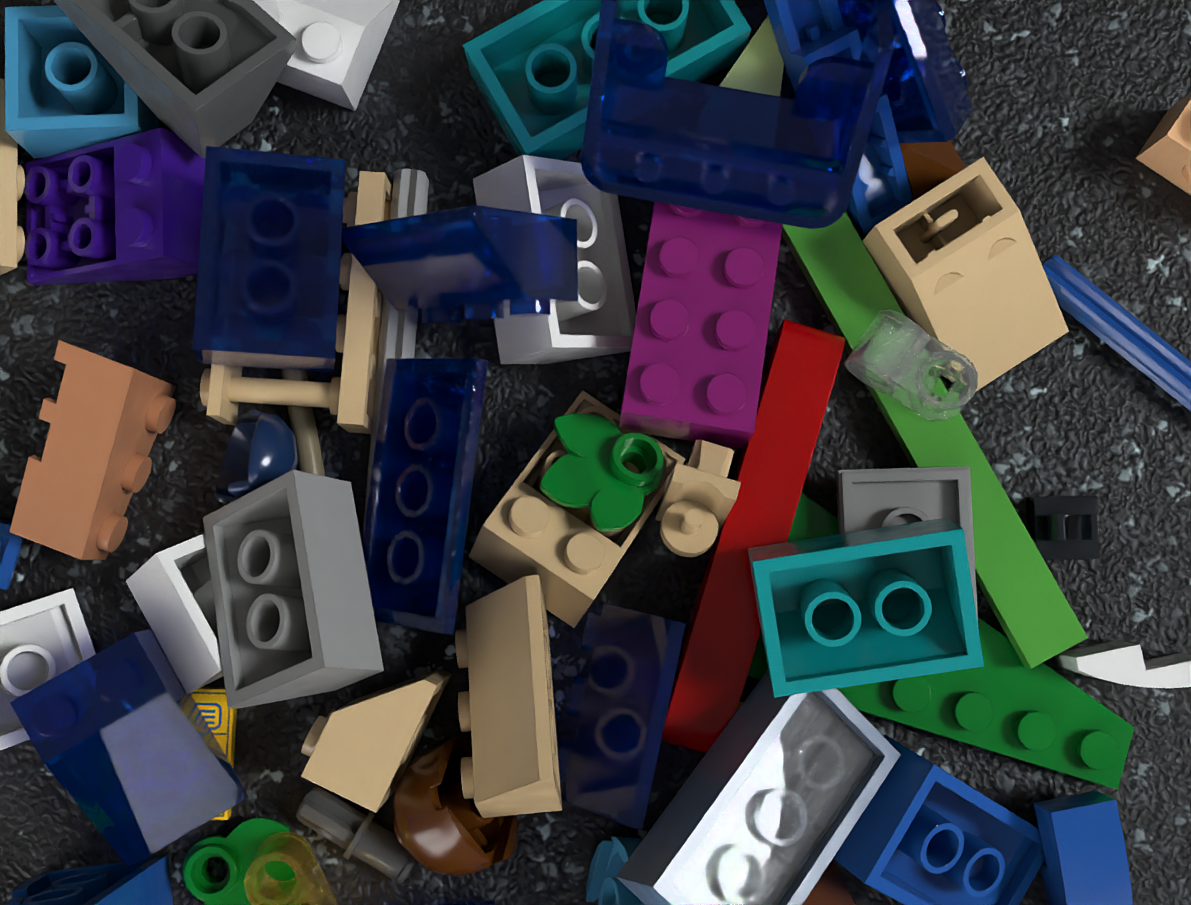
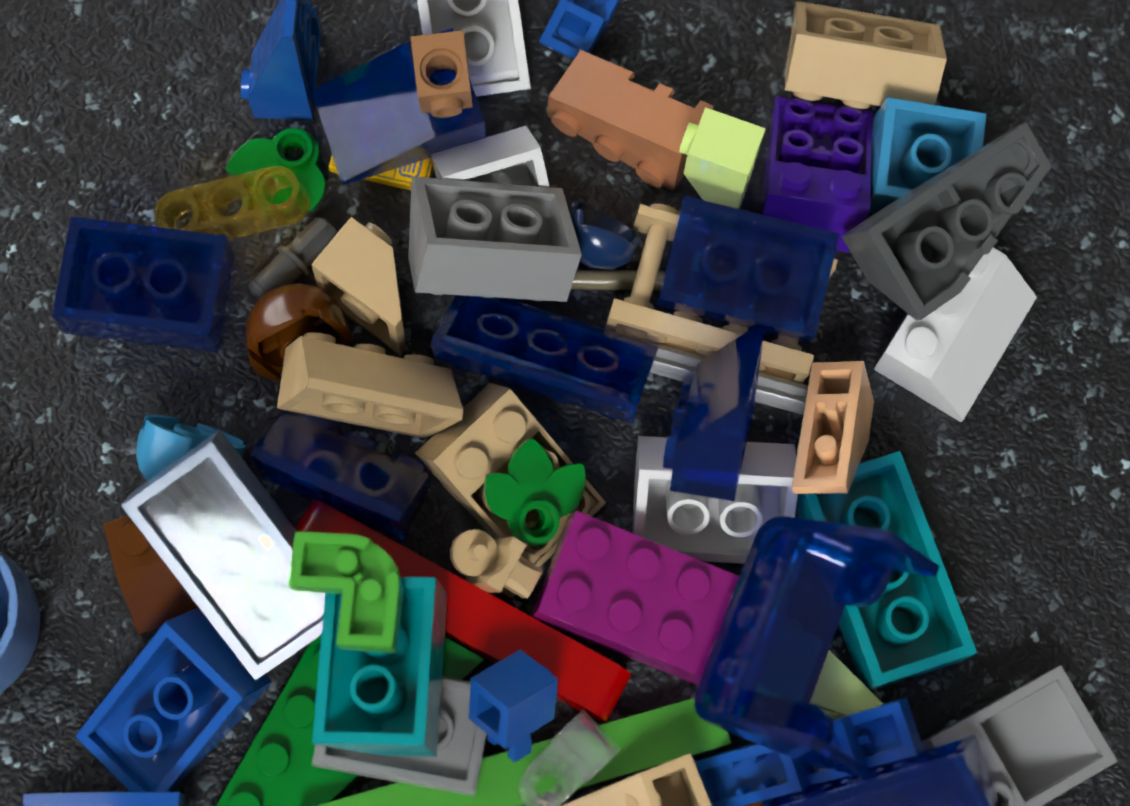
camera: 95 degrees right, 10 degrees down
(49, 707) = (435, 53): none -> medium nougat brick
(128, 313) = (721, 156): none -> yellowish green slope
(455, 127) = (833, 427): none -> light nougat slope
(777, 645) = (363, 576): none -> bright green plate
(860, 441) = (513, 702): none -> blue brick

